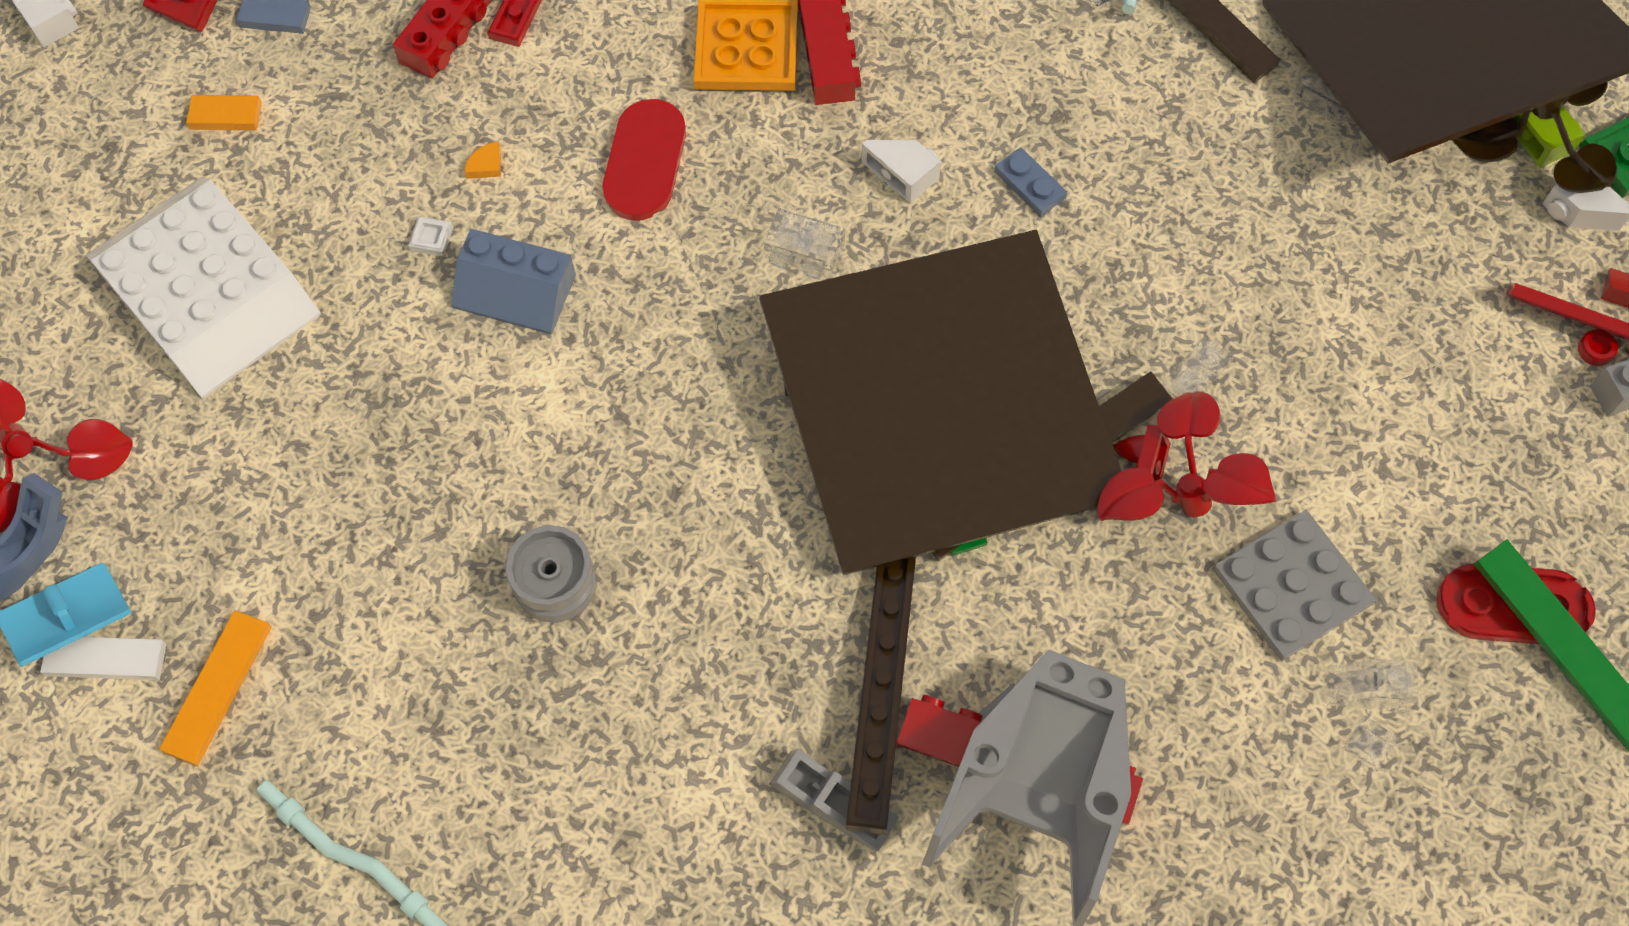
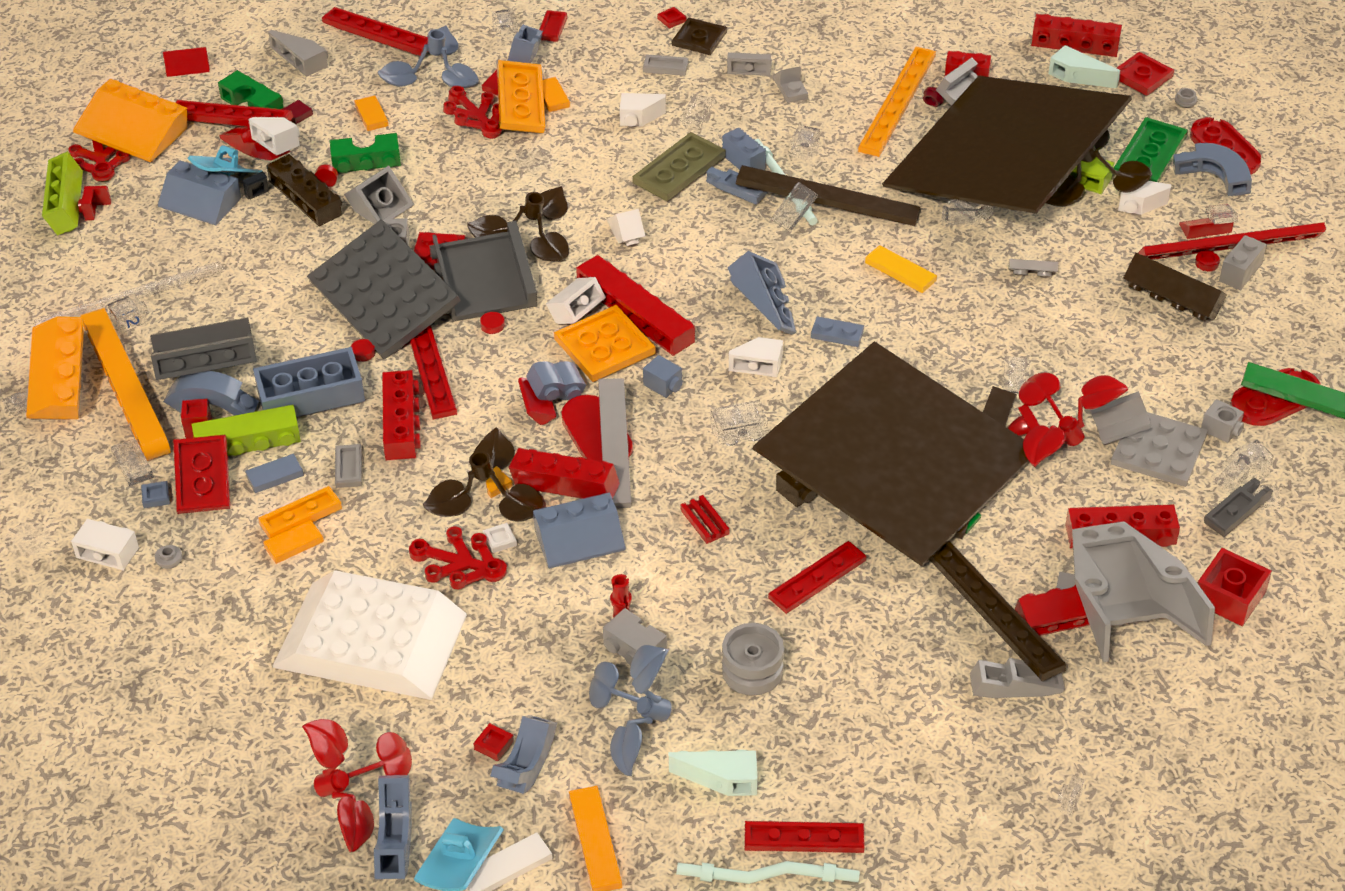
camera: 35 degrees left, 20 degrees down
(94, 63) = (168, 556): none -> light grey plate
(211, 496) = (493, 742): none -> red plate
(232, 535) = (527, 756): none -> sand blue arch
(256, 79) = (302, 510): none -> light orange plate
(353, 48) = (348, 466): none -> light grey tile
(365, 243) = (459, 561): none -> red plant
(393, 560) = (643, 669): none -> sand blue plant
(410, 702) = (722, 771): none -> light aqua slope
(421, 150) = (494, 450): none -> dark brown plant
(430, 839) = (804, 836): none -> red tile
(453, 463) = (626, 635): none -> light grey brick
(472, 401) = (620, 596): none -> red pin
(547, 200) = (563, 474): none -> red brick
(608, 78) = (539, 410): none -> red slope
(642, 187) = (614, 435): none -> light grey tile
(643, 67) = (555, 380): none -> sand blue brick
(668, 321) = (693, 504): none -> red tile
(727, 505) = (817, 577): none -> red tile
(771, 128) = (662, 376): none -> sand blue brick
(986, 68) = (762, 284): none -> sand blue wedge
(1150, 674) = (1150, 523): none -> red brick
(1182, 136) = (901, 269): none -> yellow tile
(1202, 851) = (1234, 585): none -> red brick
(1274, 525) = (1121, 418): none -> light grey panel
(1314, 738) = (1237, 507): none -> dark grey hinge
(1338, 219) = (1043, 268): none -> light grey plate
(1409, 586) = (1223, 421): none -> light grey brick
(1510, 366) = (1174, 286): none -> dark brown brick

